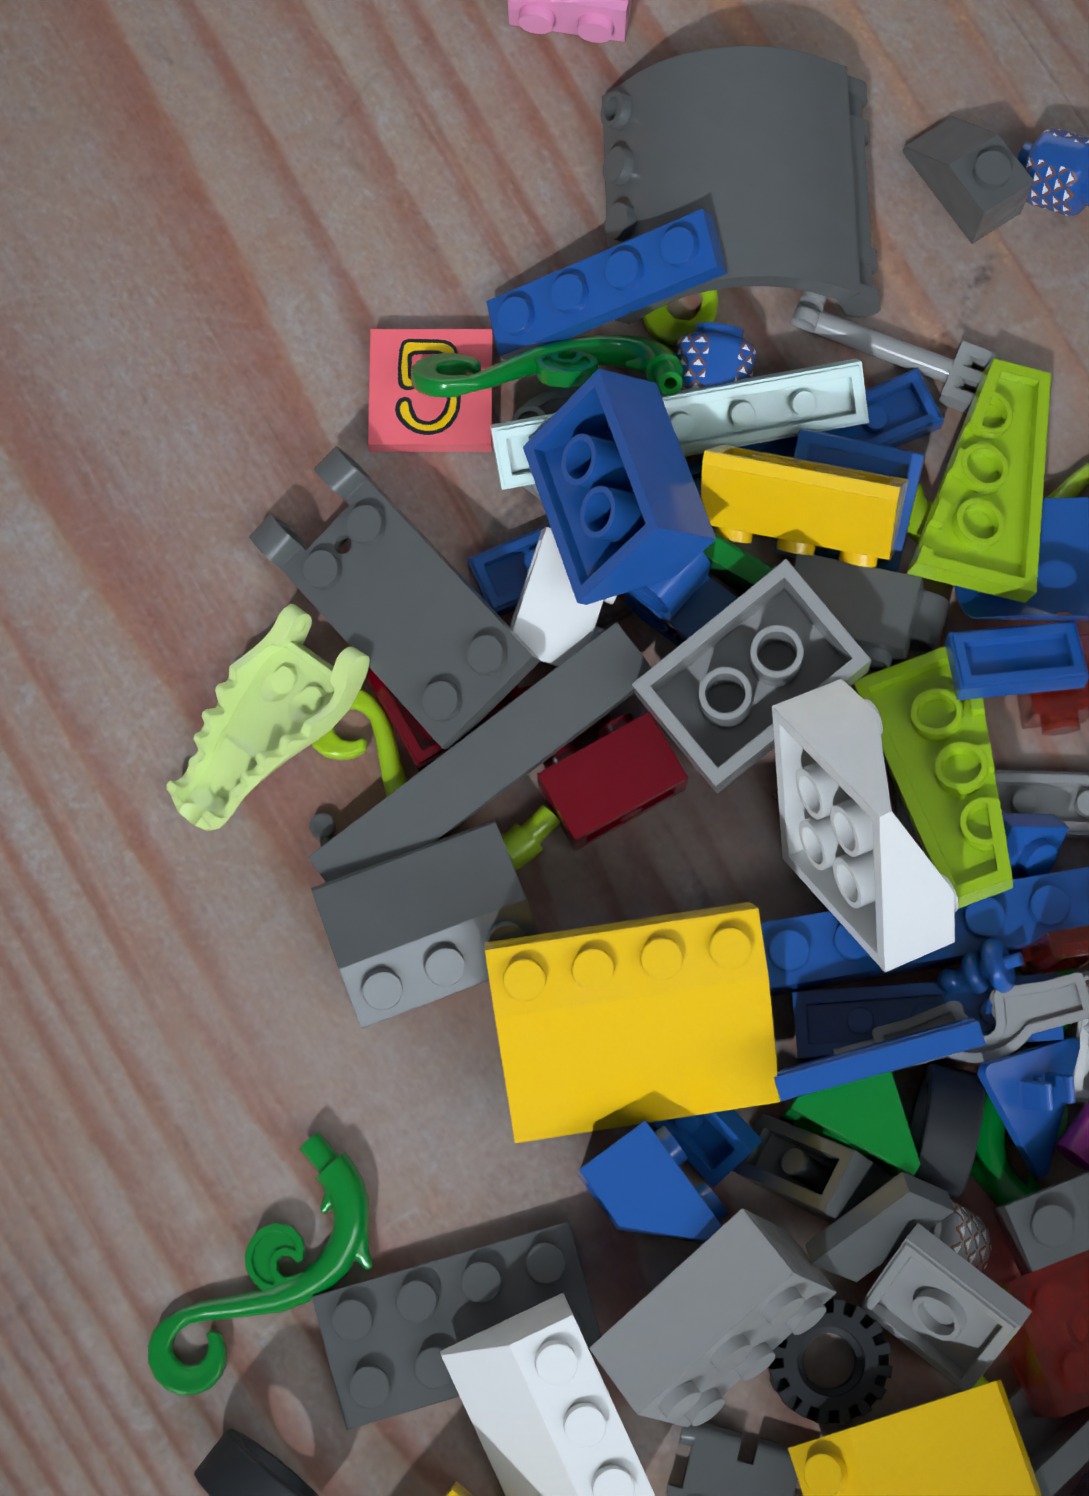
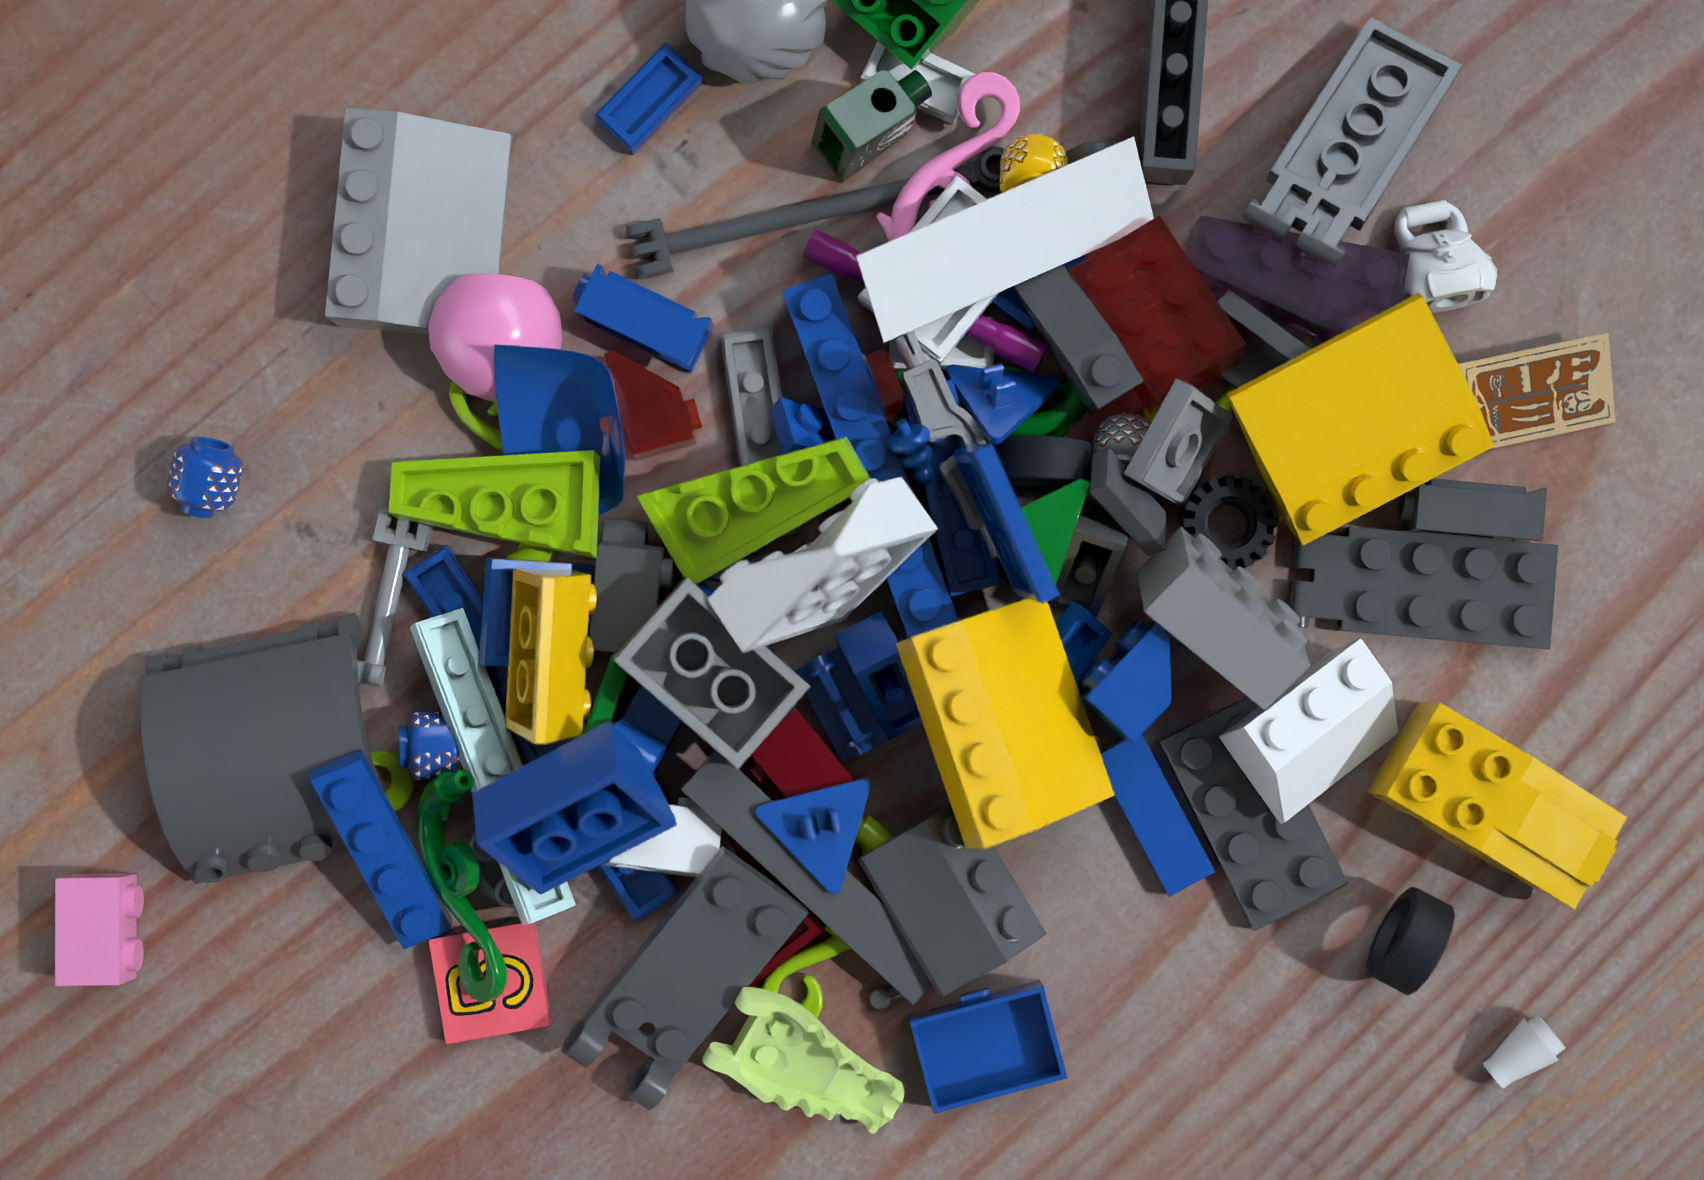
camera: 105 degrees left, 10 degrees up
(240, 940) = (987, 1045): none -> blue container
(348, 1241) = (1254, 959): green plant -> none
(479, 1198) = (1155, 816): none -> blue tile
(541, 778) = (819, 827): none -> blue piece
(681, 840) = (841, 705): none -> blue hinge
(714, 880) = (880, 672): none -> blue slope
(971, 175) = (218, 555): dark grey slope -> none
(1016, 660) = (655, 459): blue tile -> none

